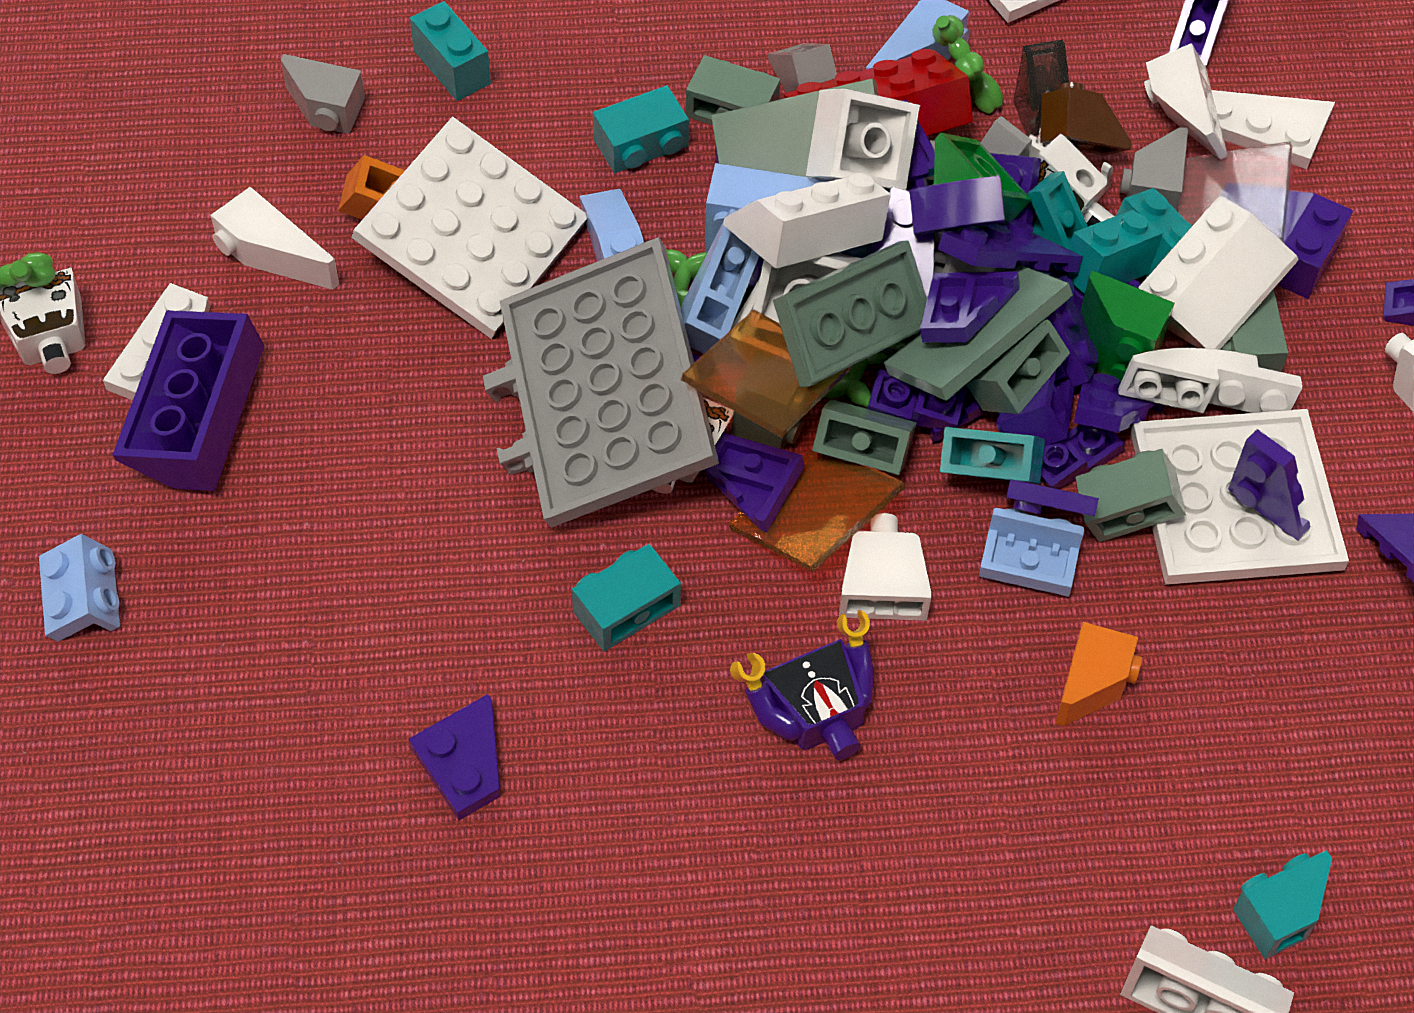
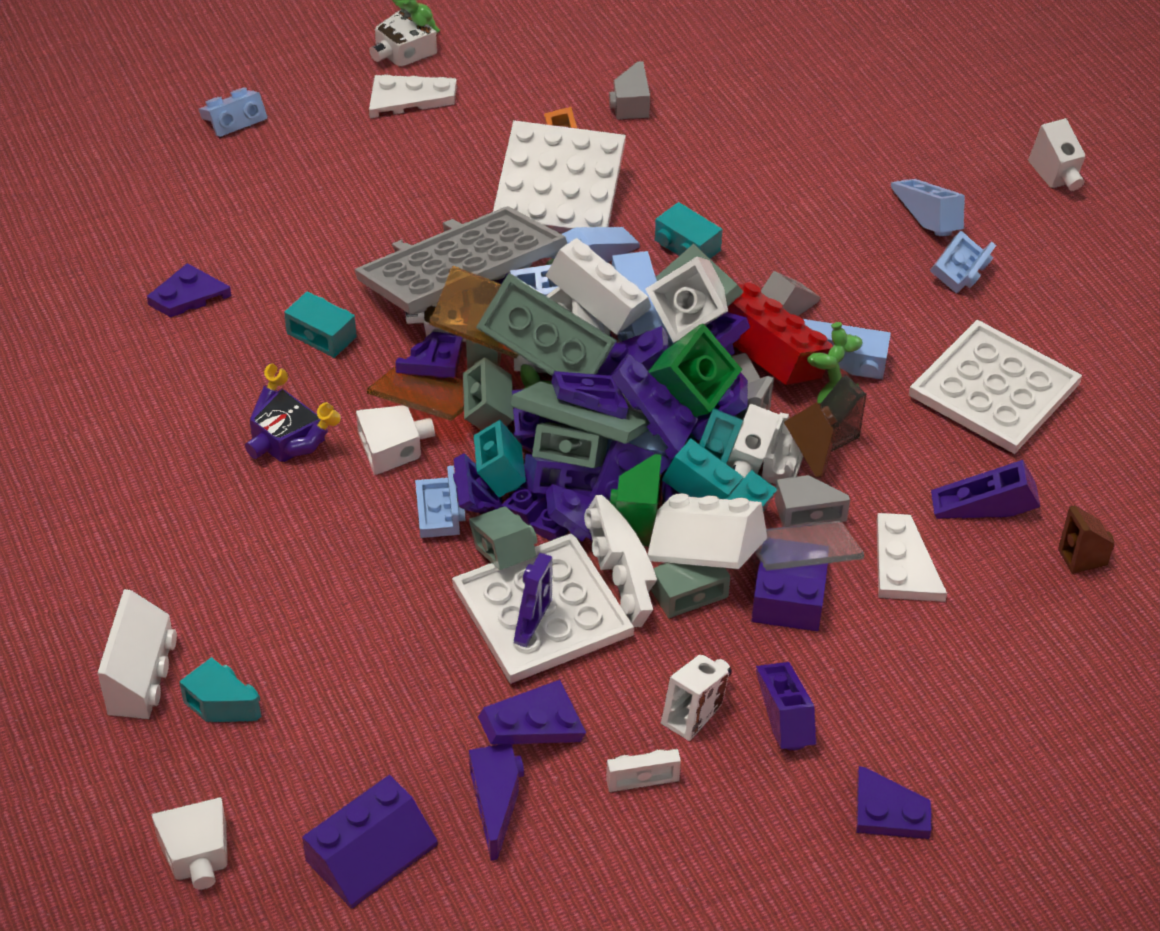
camera: 70 degrees right, 10 degrees down
(190, 398) = (372, 107): dark purple slope -> none
(270, 241) = (510, 100): white slope -> none
(450, 50) = (698, 133): teal brick -> none
(727, 87) = (744, 261): sand green brick -> none
(956, 205) = (652, 352): dark purple slope -> none
(1098, 672) = (357, 557): orange slope -> none
(1184, 92) = (880, 498): white slope -> none

